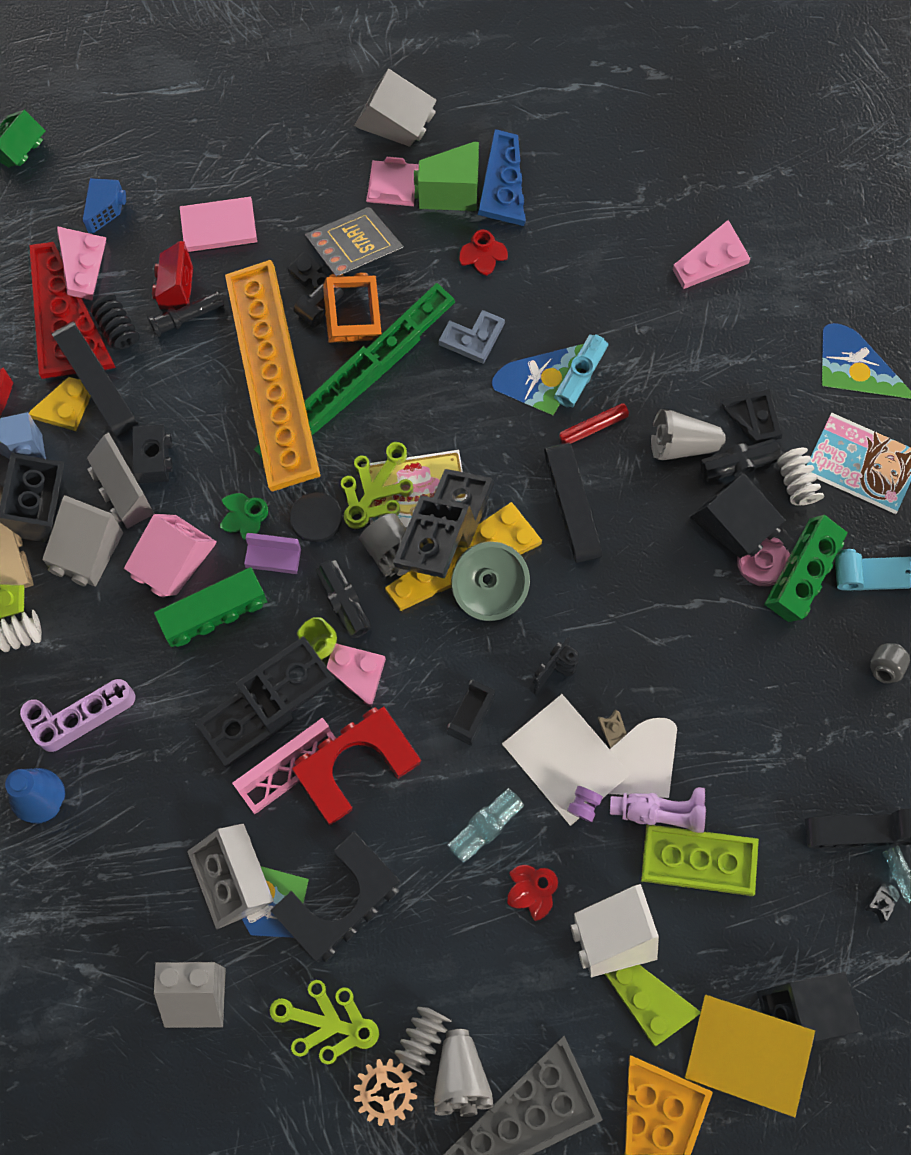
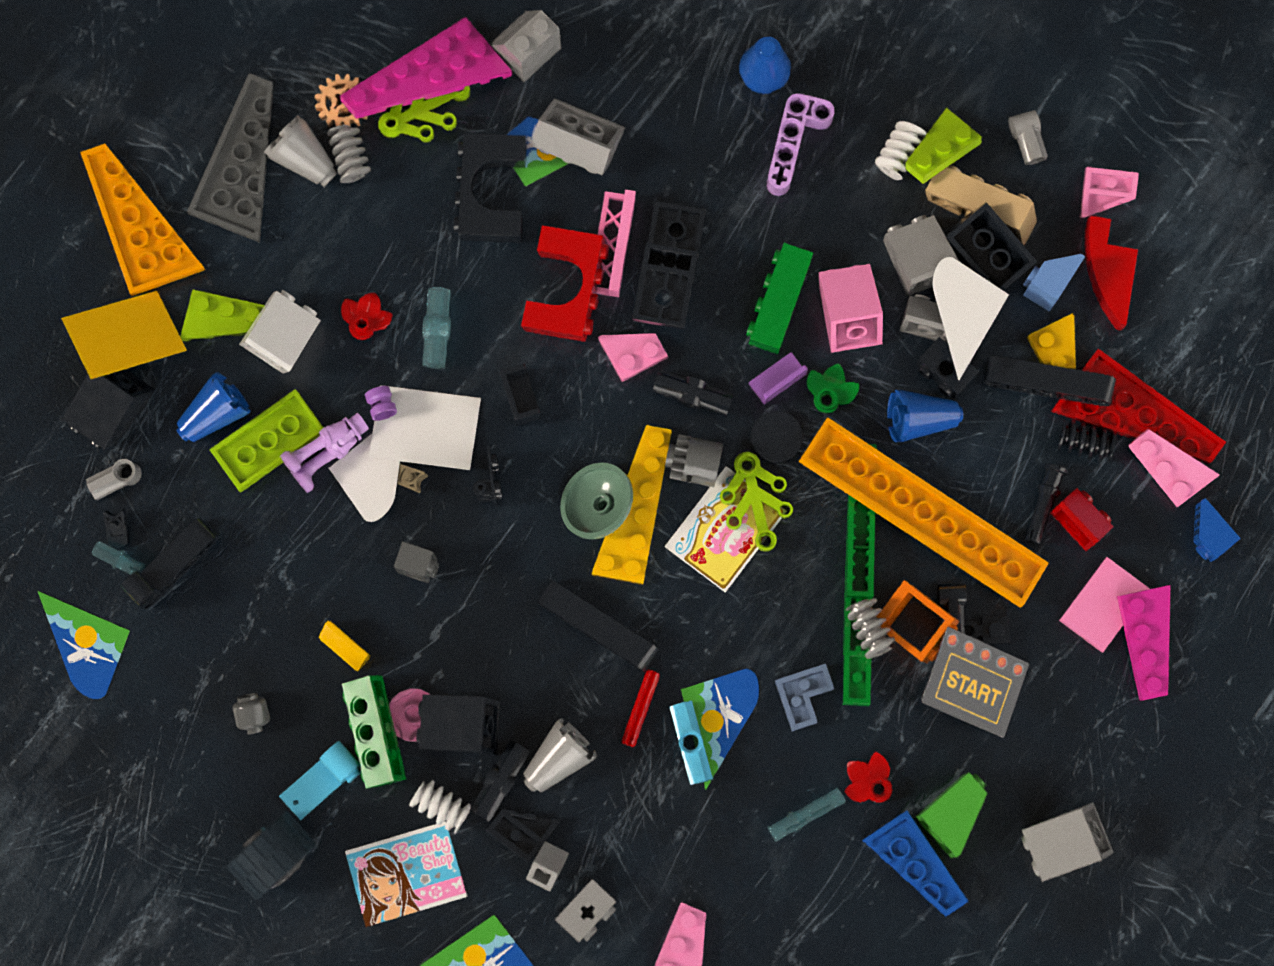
camera: 135 degrees right, 10 degrees up
(93, 462) = (966, 308): none -> white sticker
(205, 437) = (920, 415): none -> blue cone
(212, 182) = (1147, 635): none -> dark pink wing
(282, 1043) = (431, 70): none -> dark pink wing
(319, 636) = (680, 345): lime hair -> none
(384, 322) = (870, 628): none -> light grey piece
(392, 182) = (1007, 778): bright pink piece -> none
(443, 523) = (669, 508): black bracket -> none
(545, 265) = (805, 815): none -> clear light blue pin
(668, 654) = (416, 562): none -> dark grey brick
(724, 923) = (212, 409): none -> blue cone
(756, 330) = (571, 916): none -> light grey brick
(758, 375) = (547, 866): none -> light grey brick
(773, 651) = (344, 646): none -> yellow slope
(855, 944) = (112, 480): none -> light grey piece

